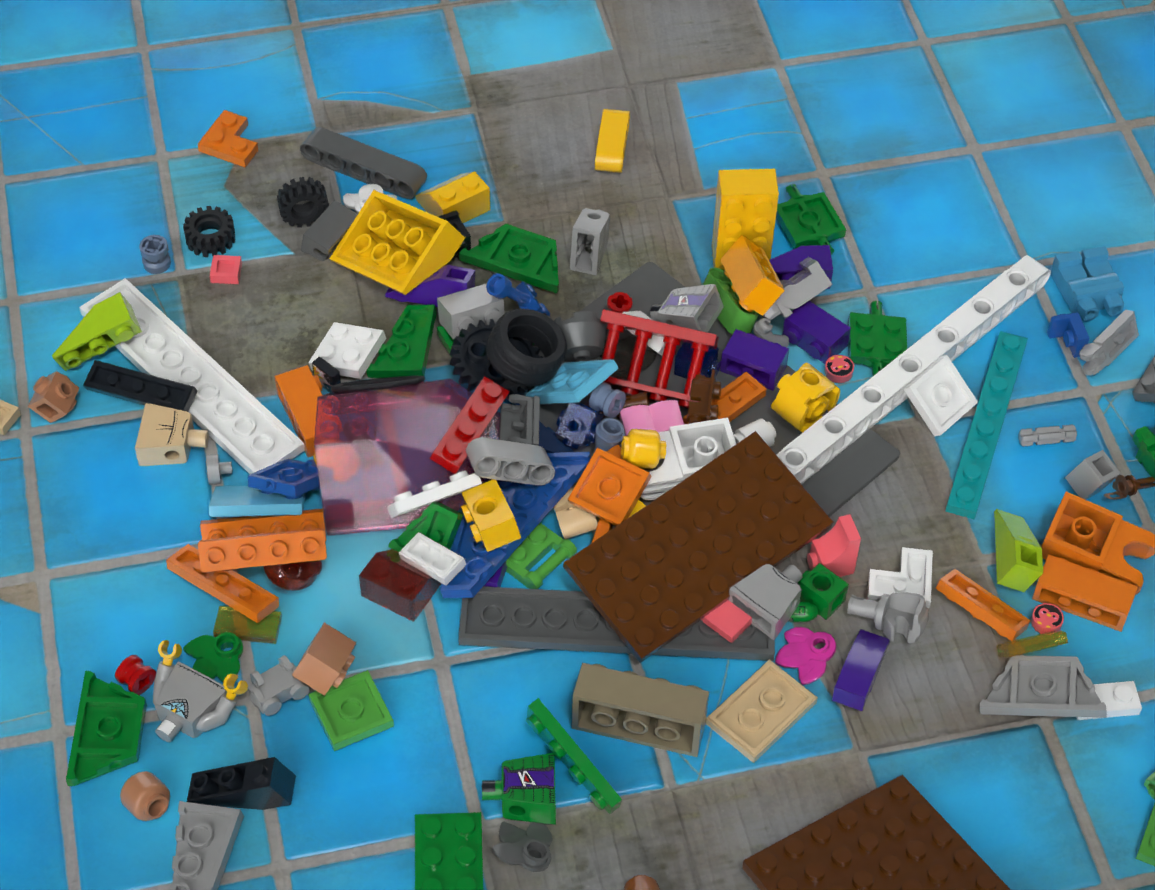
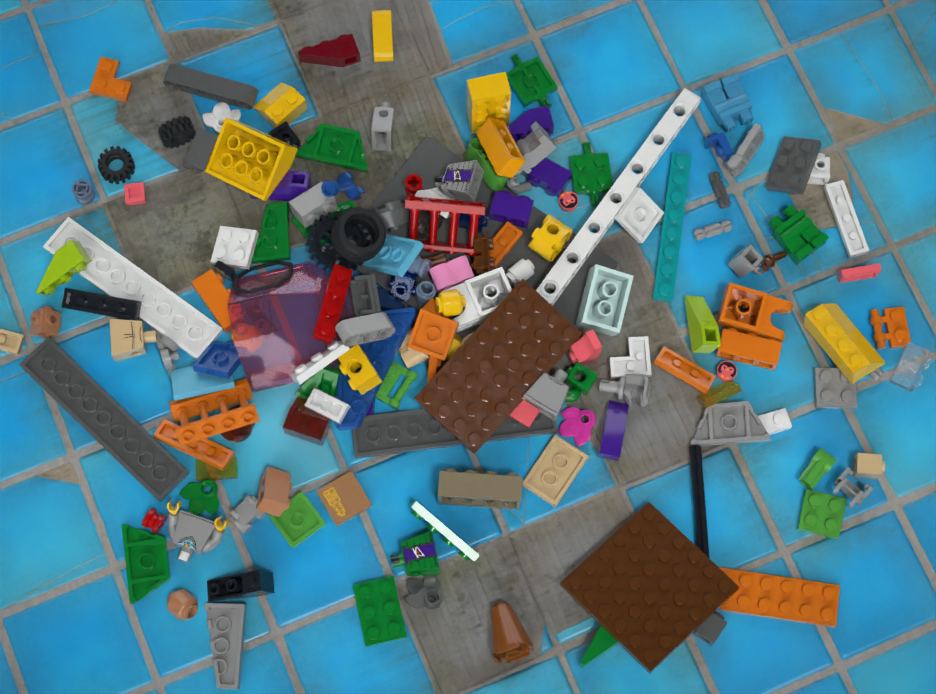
camera: 10 degrees left, 20 degrees up
(103, 534) = (104, 419): none -> dark grey plate
(223, 448) = (169, 343): none -> light grey tile
(429, 695) = (344, 498): none -> medium nougat tile
(538, 149) = (336, 52): none -> dark red slope
(874, 488) = (604, 300): none -> light aqua brick
(982, 782) = (699, 498): none -> black axle
(1064, 387) = (719, 190): none -> dark grey axle

